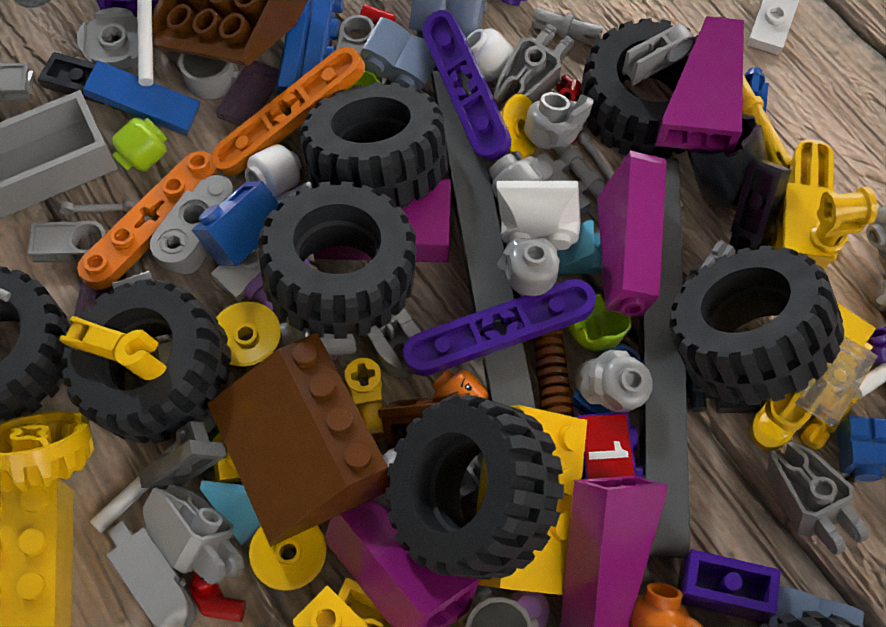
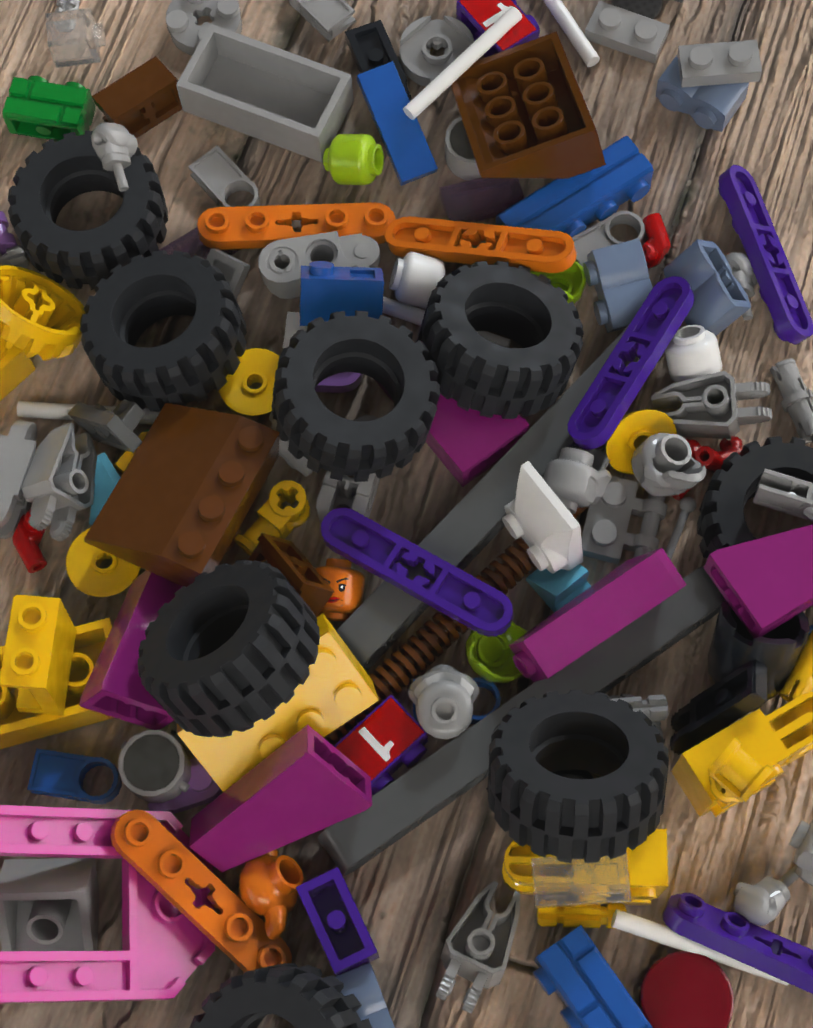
camera: 55 degrees right, 5 degrees up
(69, 208) = (256, 160): light grey hinge -> none
(128, 349) = (142, 307): yellow piece -> none
(530, 265) = (486, 551): light grey head -> none

